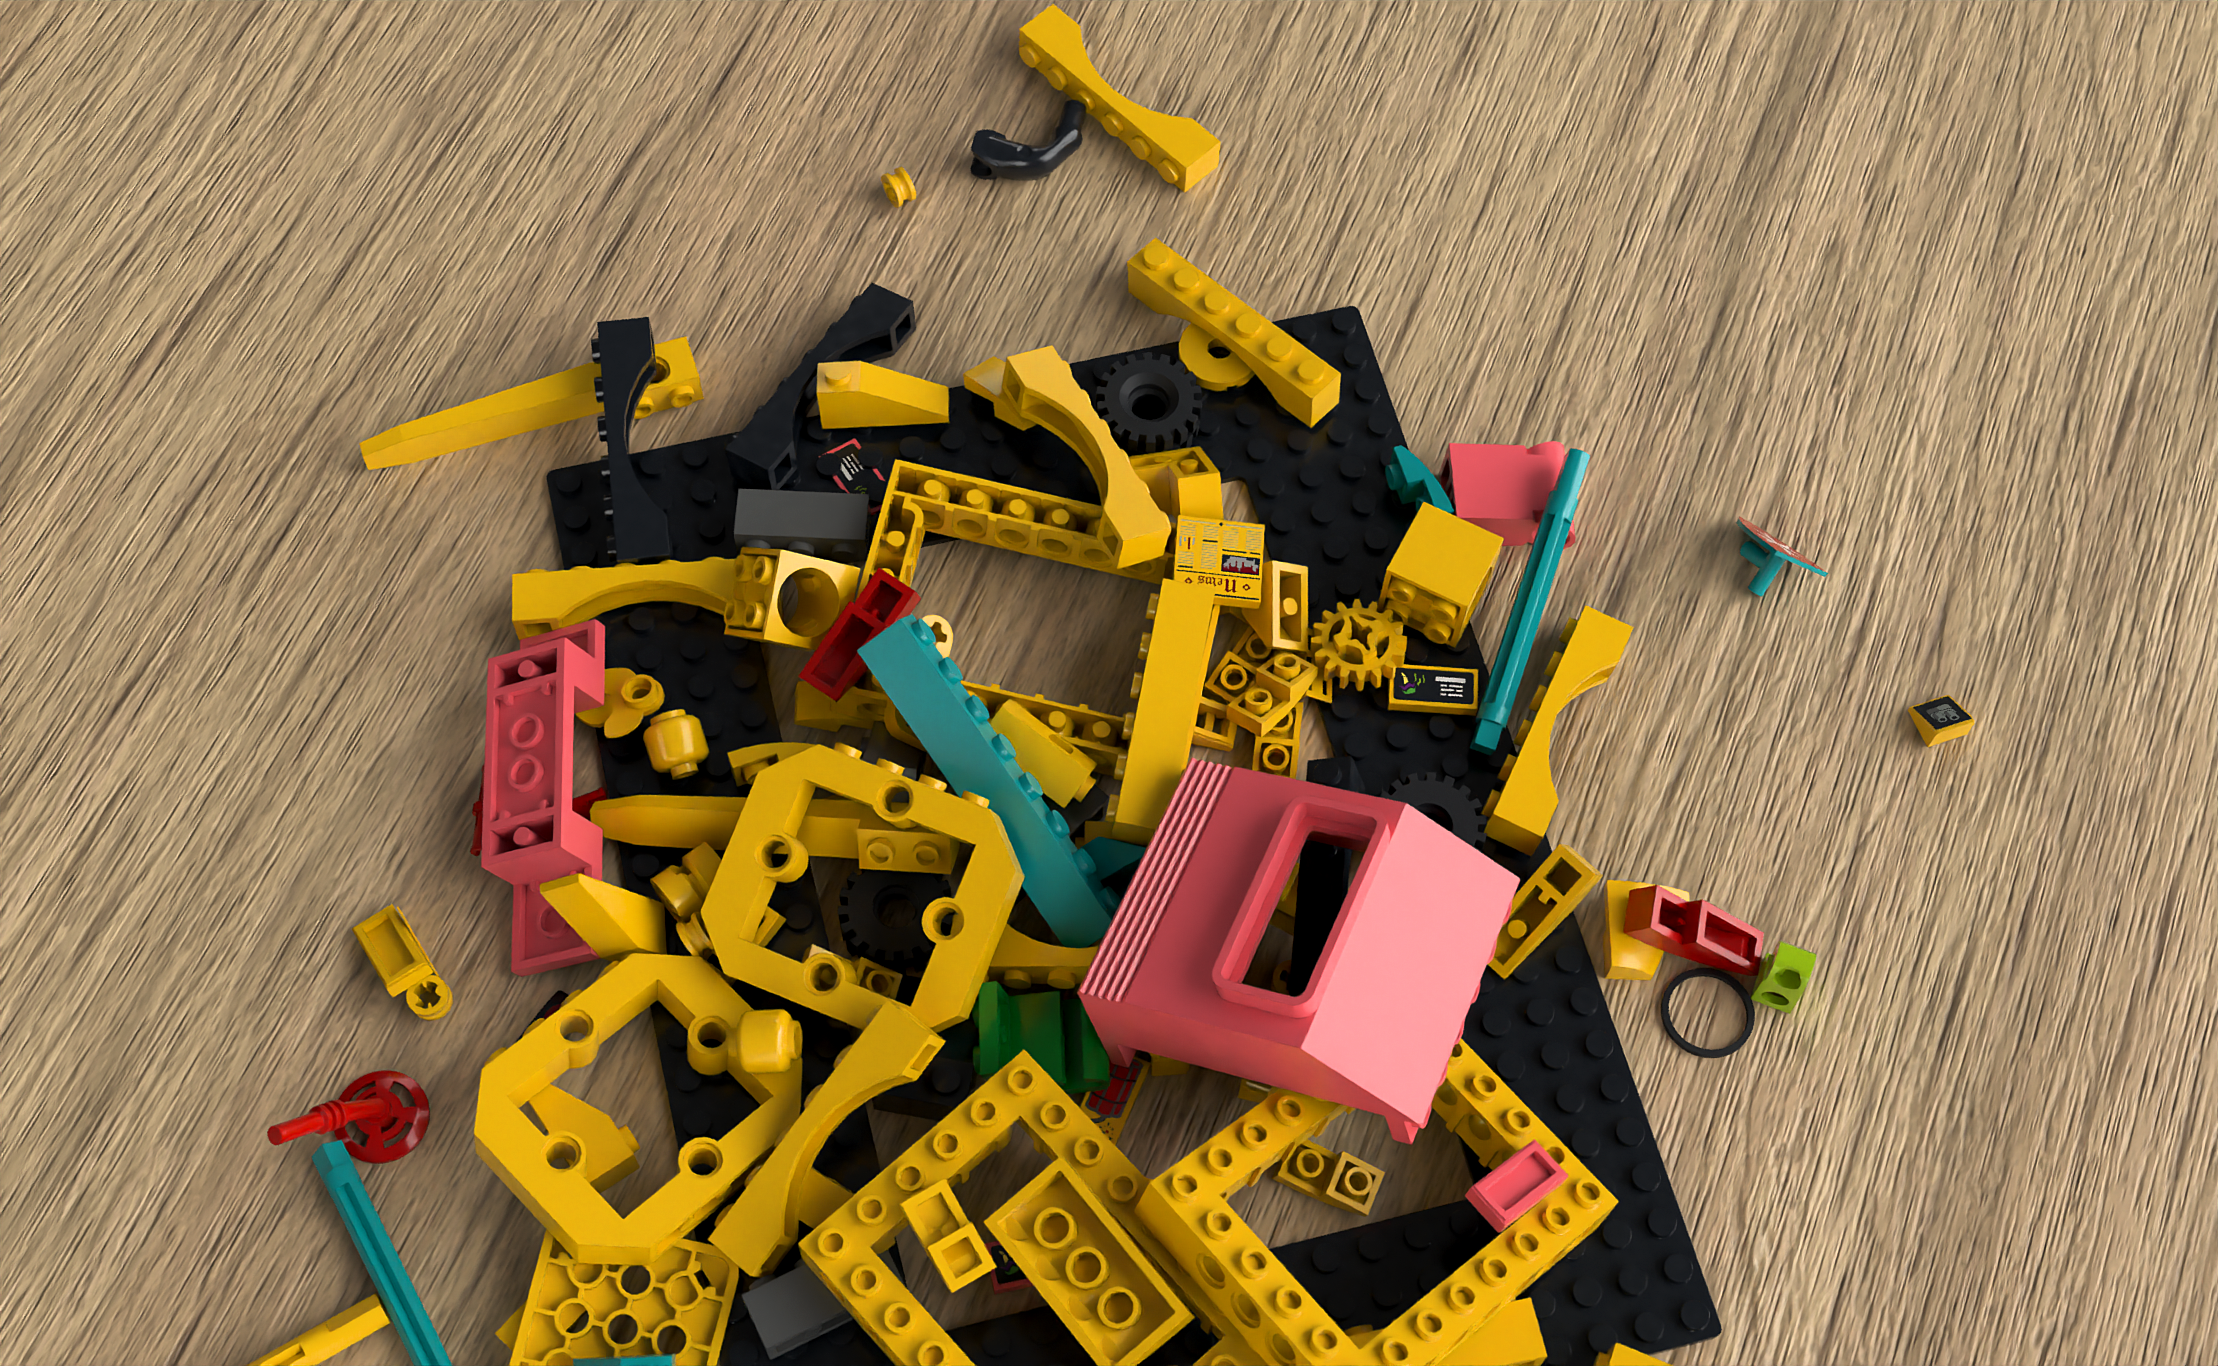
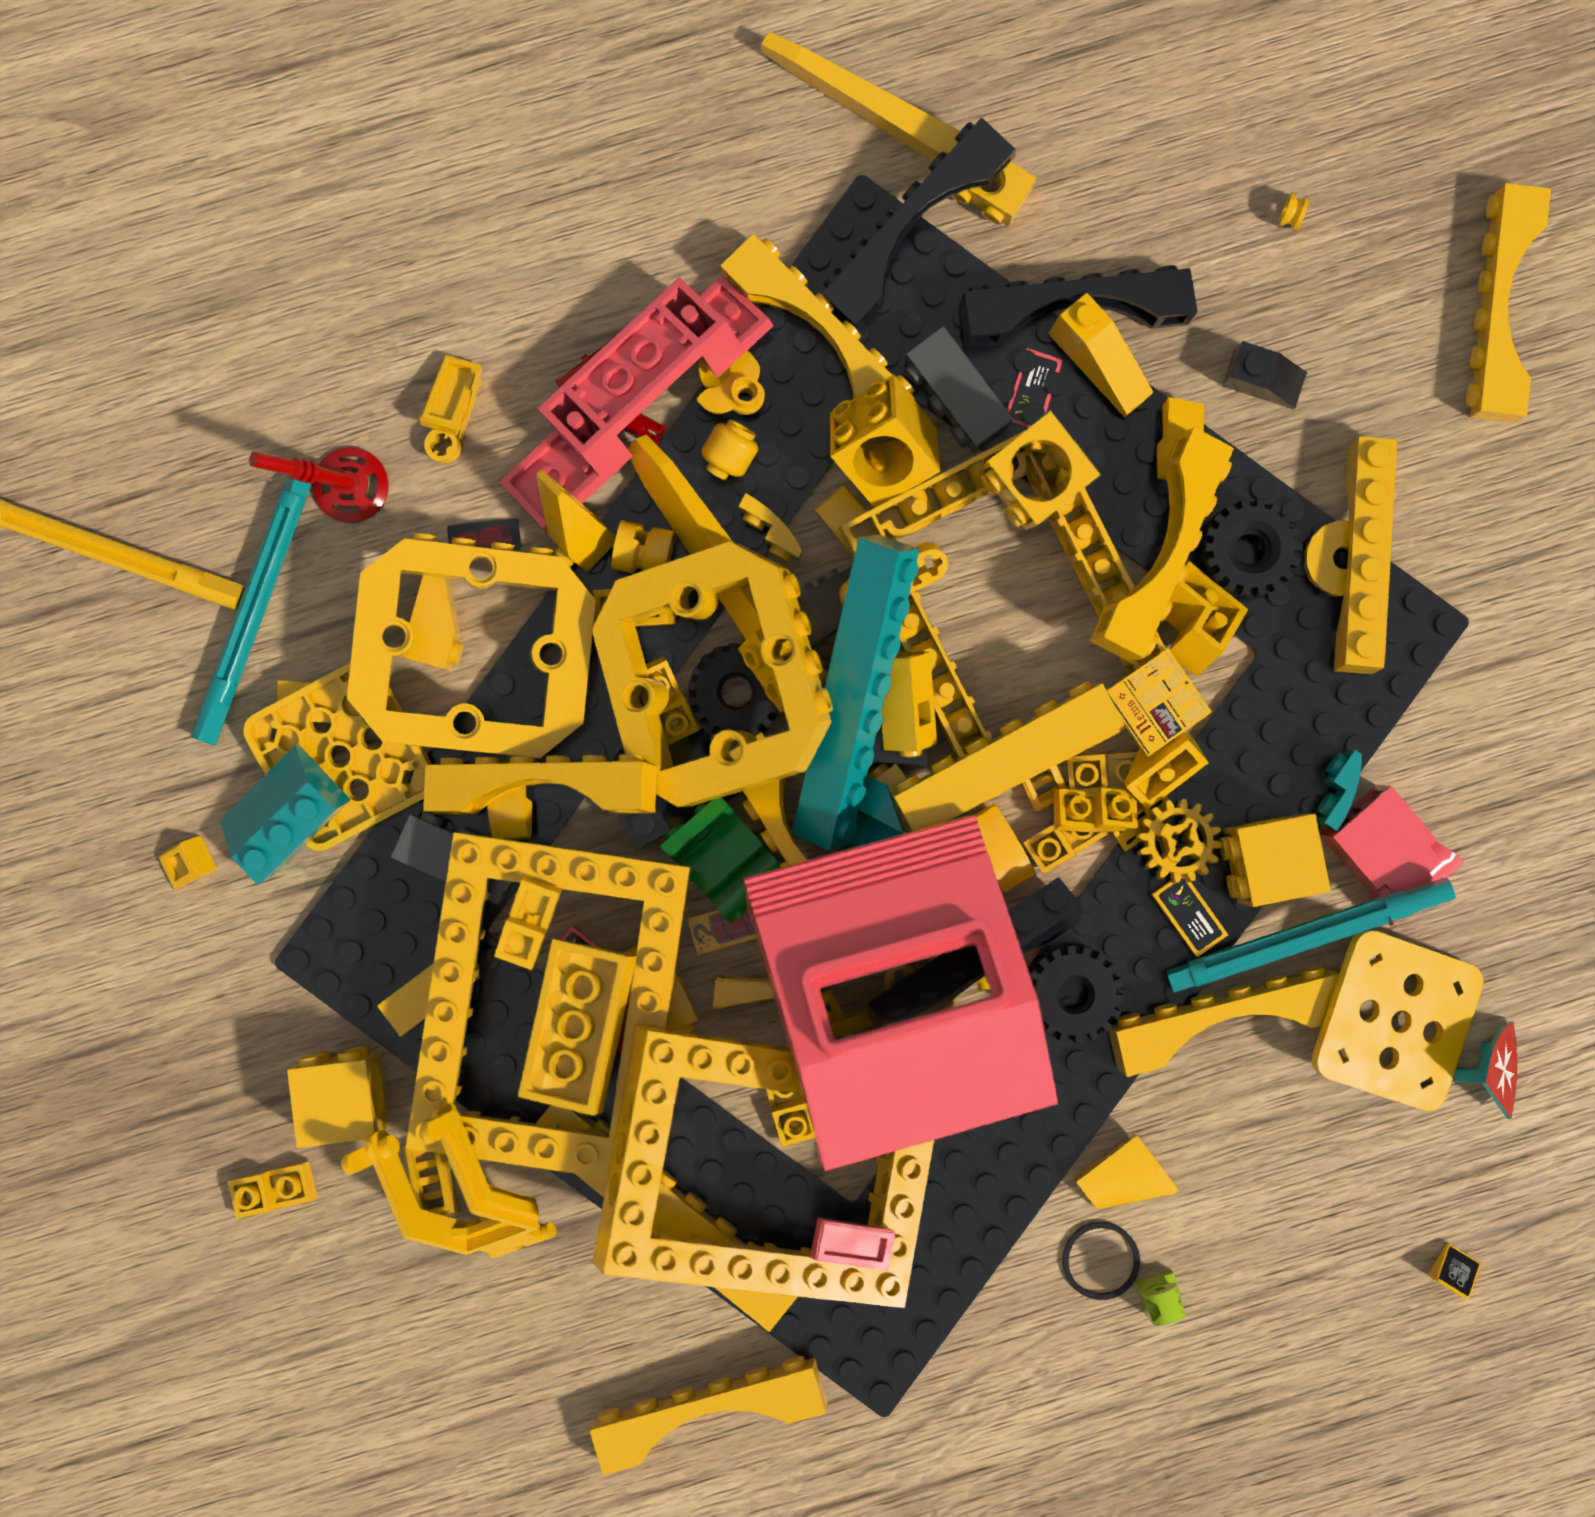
camera: 55 degrees right, 25 degrees up
(694, 935) = (604, 582): yellow bush -> none
(766, 1041) = (568, 696): yellow head -> none
(836, 661) = (890, 514): red slope -> none
(933, 456) = (1073, 475): none -> yellow brick
(1009, 301) = (1264, 375): none -> black slope
(1017, 161) = (1382, 264): black piece -> none
(1180, 1132) = (736, 991): none -> yellow slope
(1542, 906) = (1091, 1109): yellow slope -> none
(1660, 639) = (1365, 1039): none -> yellow piece
(1693, 930) = (1147, 1216): red slope -> none

